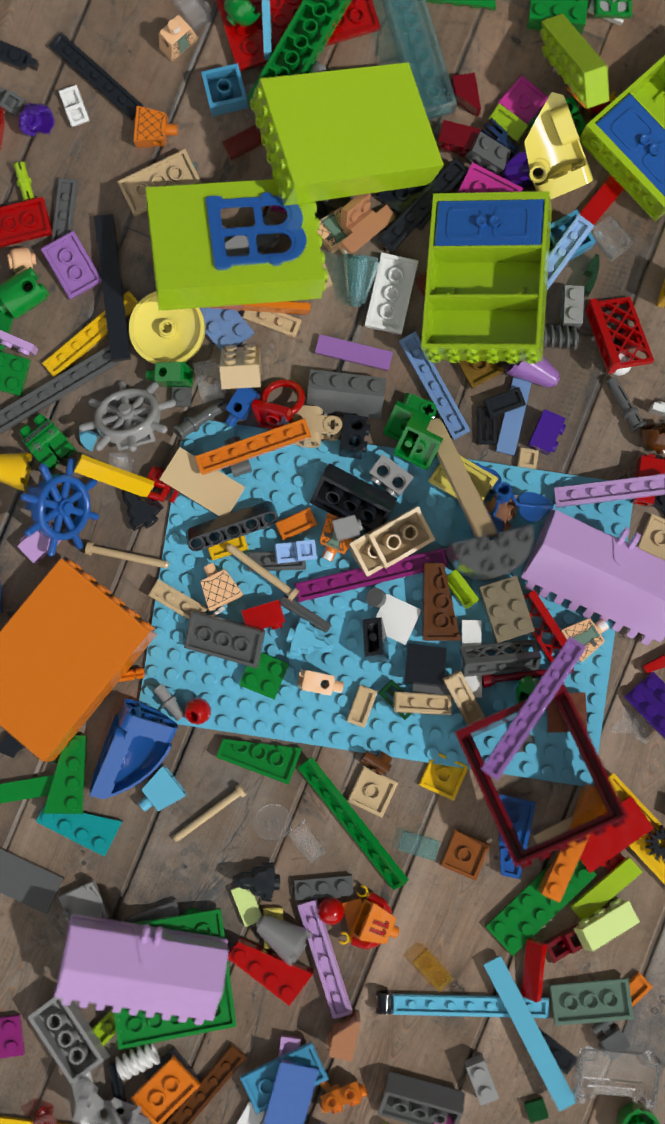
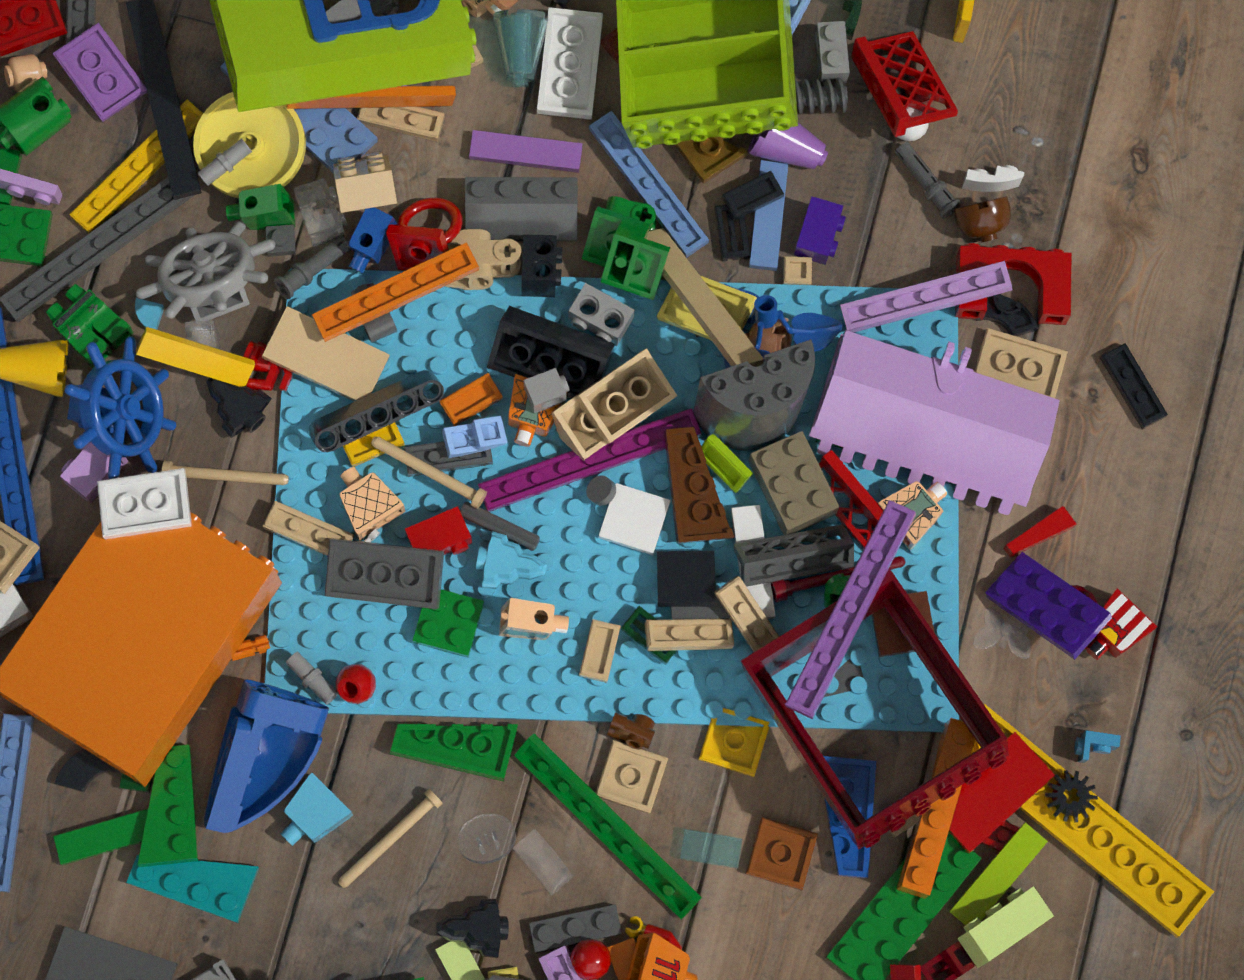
camera: 15 degrees left, 10 degrees down
(68, 576) = (144, 503): none -> white tile
(148, 340) = (224, 162): none -> light grey pin
(375, 640) = (607, 550): black slope -> none

